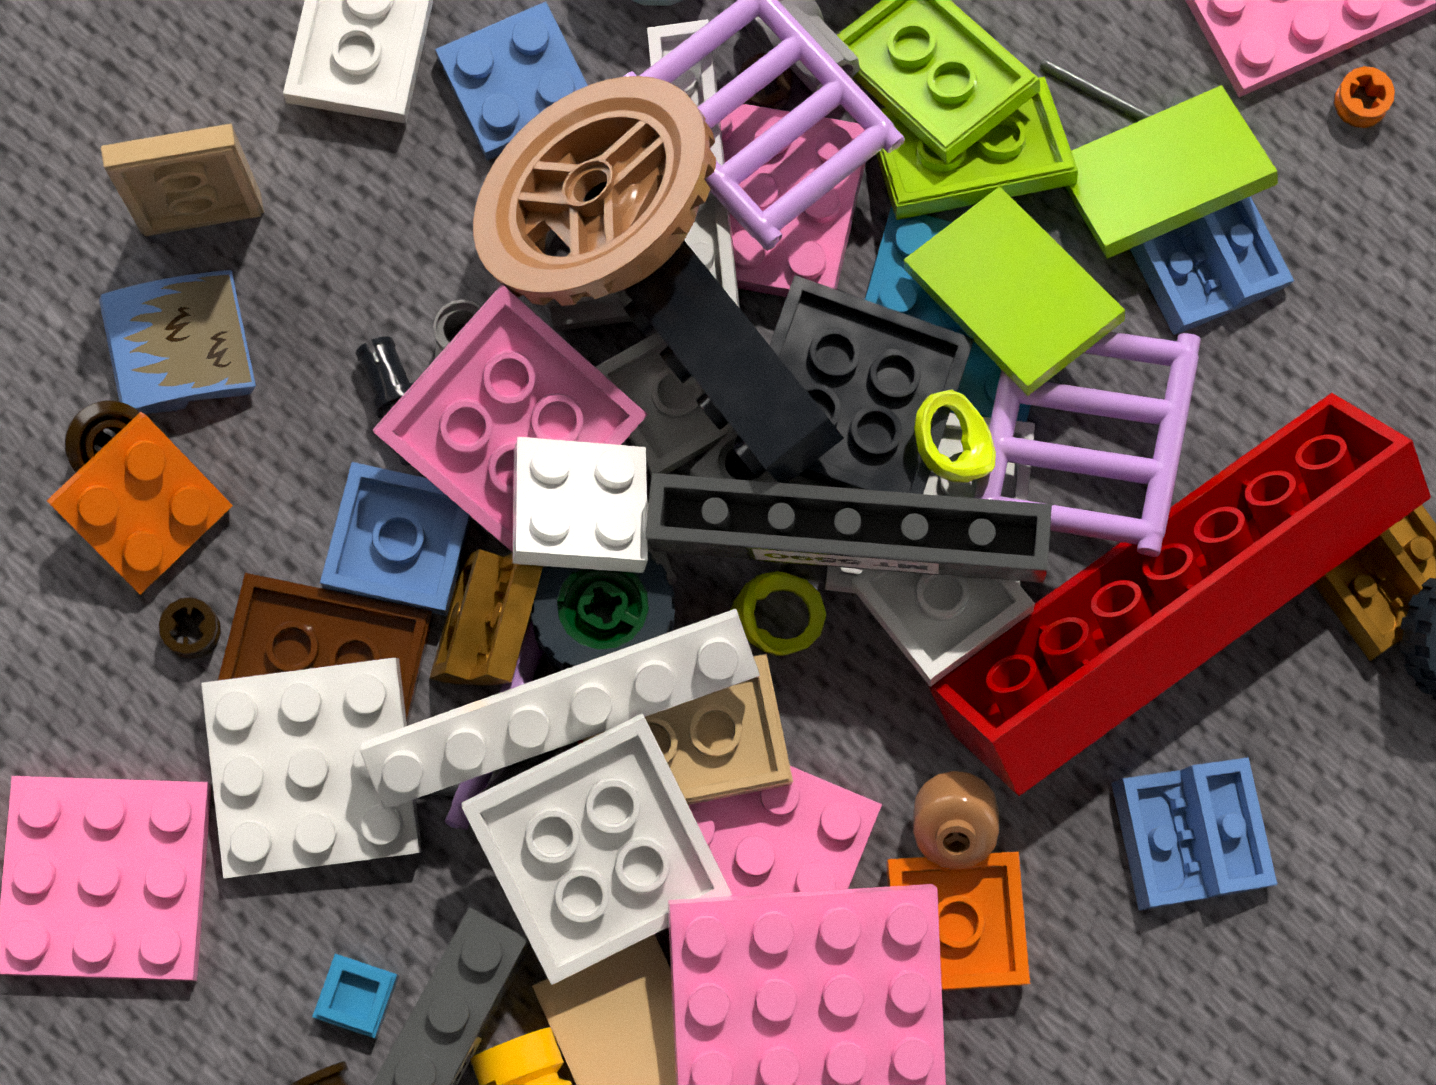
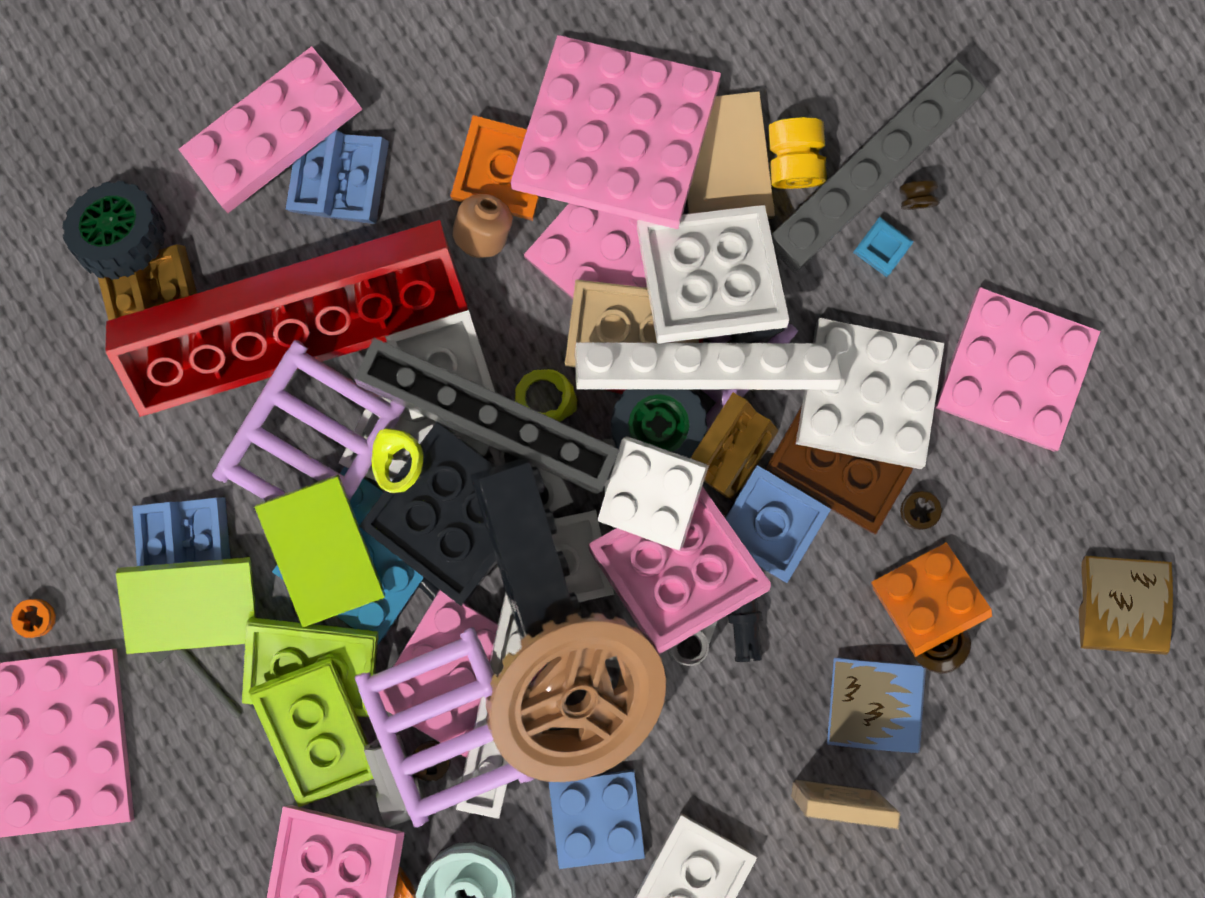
camera: 155 degrees left, 10 degrees up
(1315, 865) = (270, 129): none -> bright pink plate

